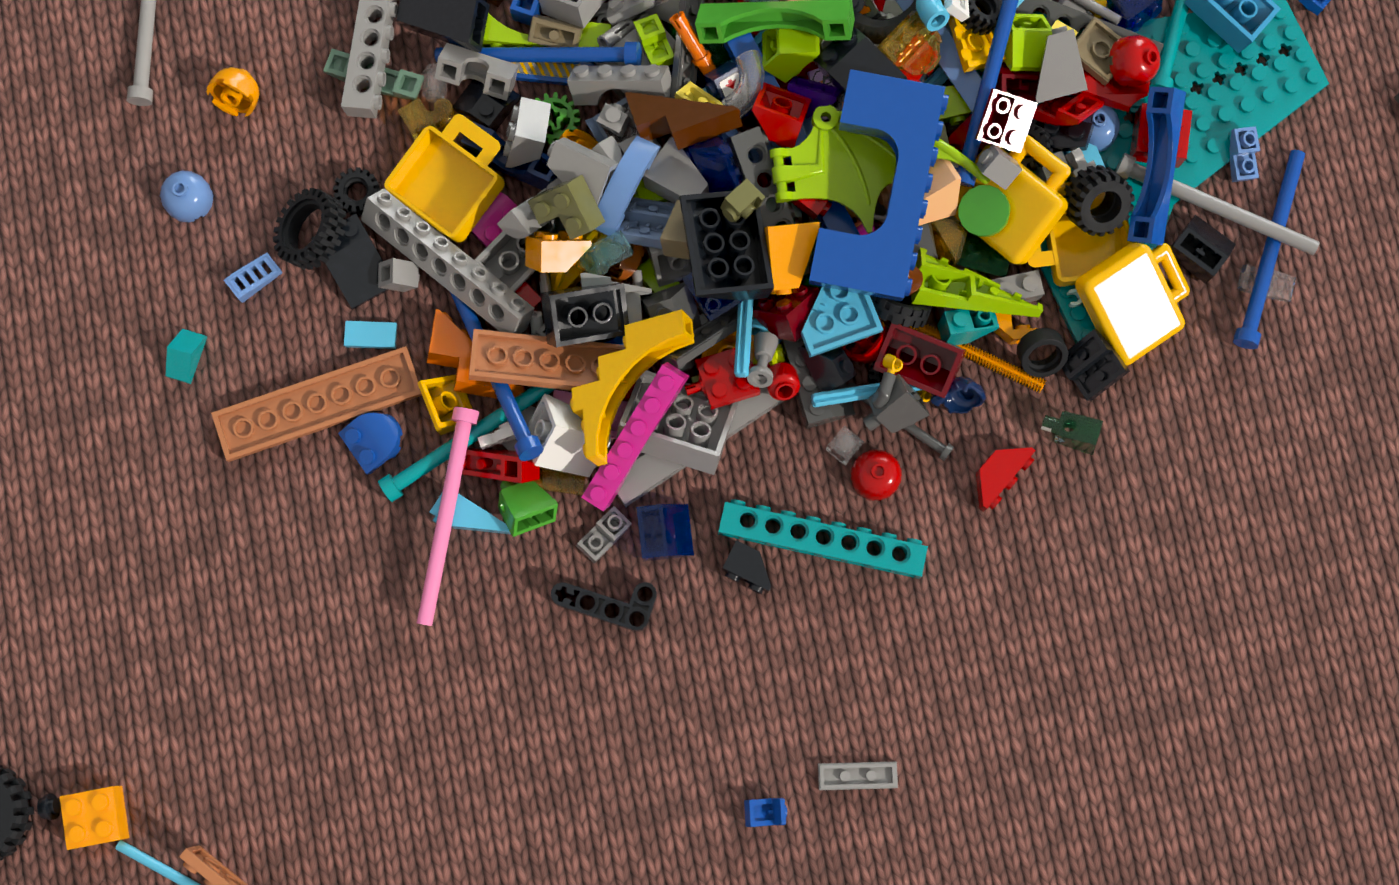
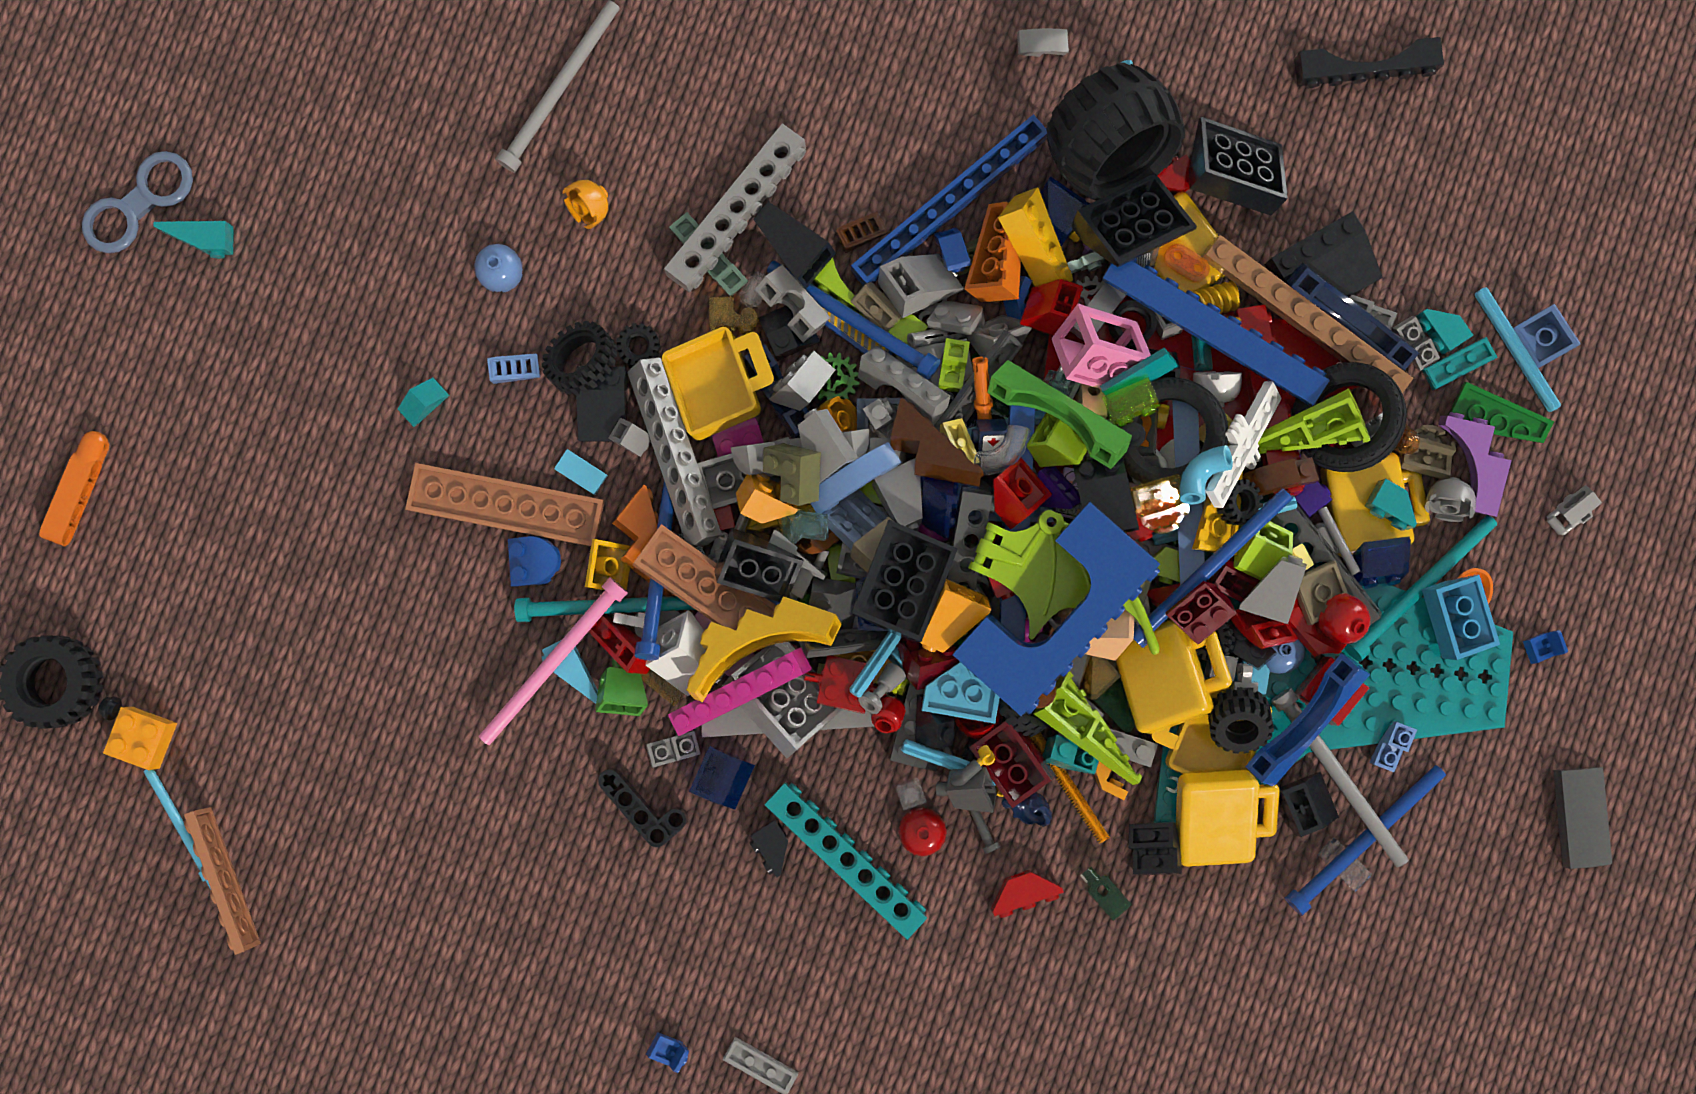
camera: 30 degrees right, 5 degrees up
(742, 201) = (936, 555): olive brick -> none
(984, 210) = (1139, 673): bright green tile -> none
(998, 166) = (1171, 647): light grey brick -> none
(1035, 339) = (1119, 802): black tyre -> none

